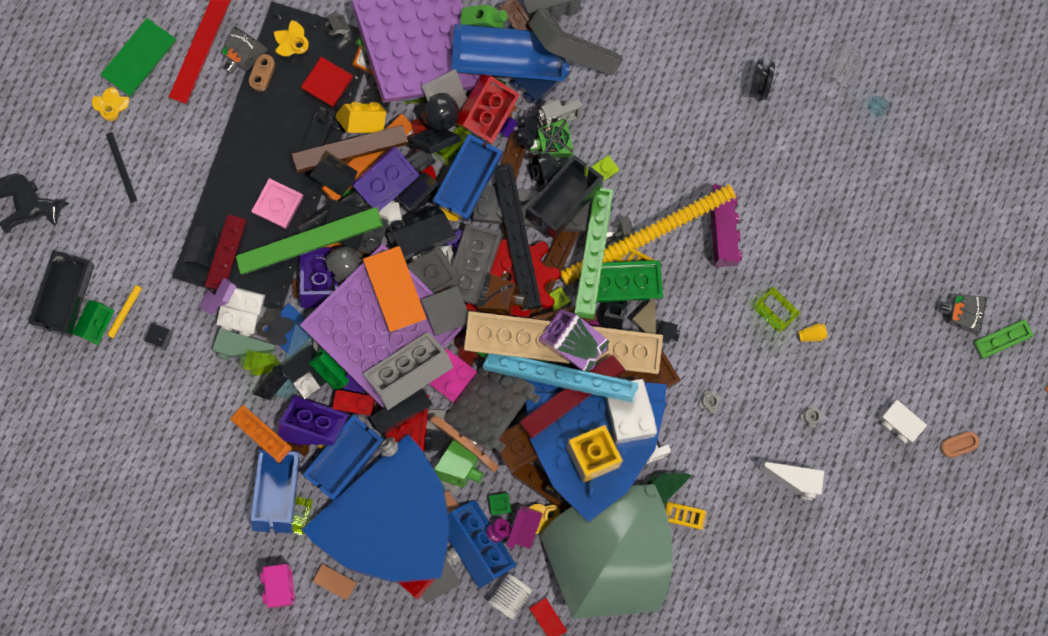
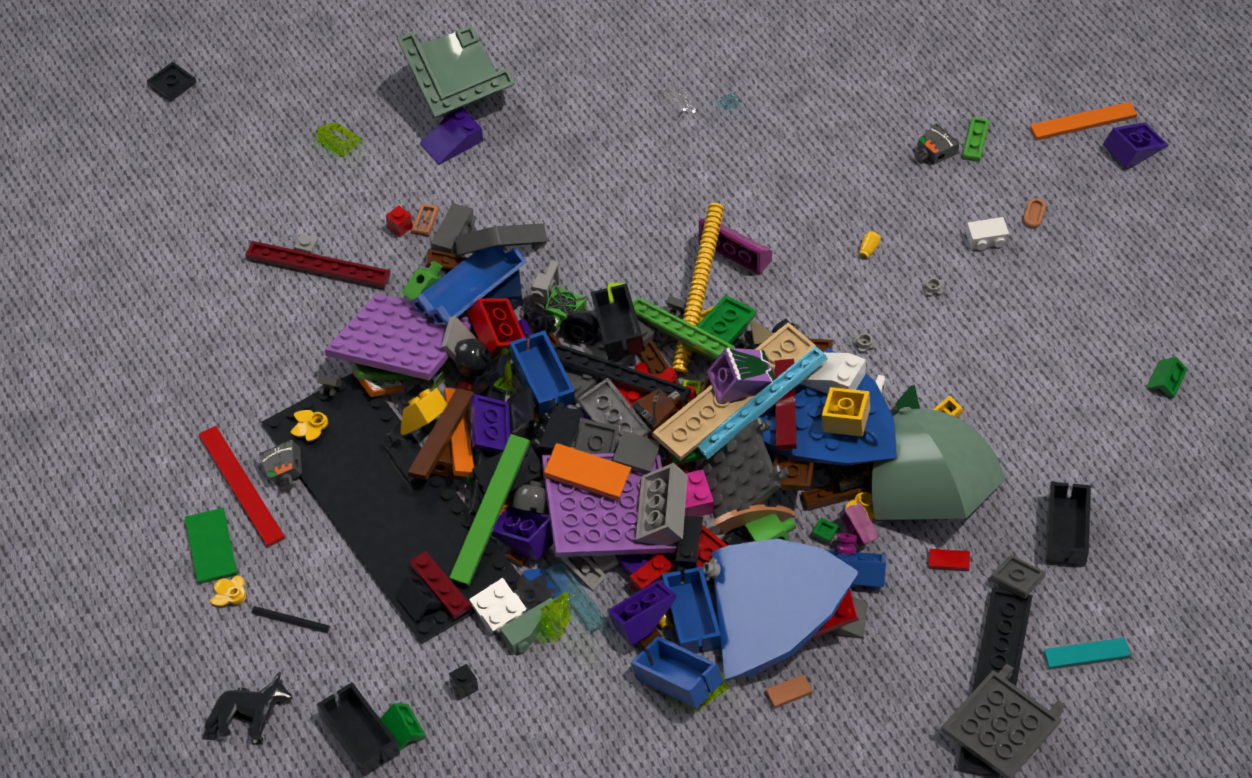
camera: 45 degrees left, 25 degrees down
(124, 311) = (415, 697): yellow bar -> none
(212, 301) = (475, 603): medium lavender tile -> none
(261, 433) = (616, 654): orange tile -> none
(263, 72) = (314, 461): medium nougat plate -> none
(271, 383) = (582, 621): black hinge -> none
(277, 203) = (434, 521): bright pink tile -> none
(278, 586) = (759, 726): dark pink brick -> none
(302, 374) = (594, 592): black slope -> none
(327, 82) = (368, 423): red tile -> none
(329, 370) = (609, 569): green panel -> none
(334, 173) = (454, 453): black panel -> none
(515, 604) = (916, 556): white piece -> none
(762, 79) = (644, 149): black wheel -> none
(763, 310) = (830, 261): clear neon green tile -> none
(798, 480) = (974, 321): white slope -> none

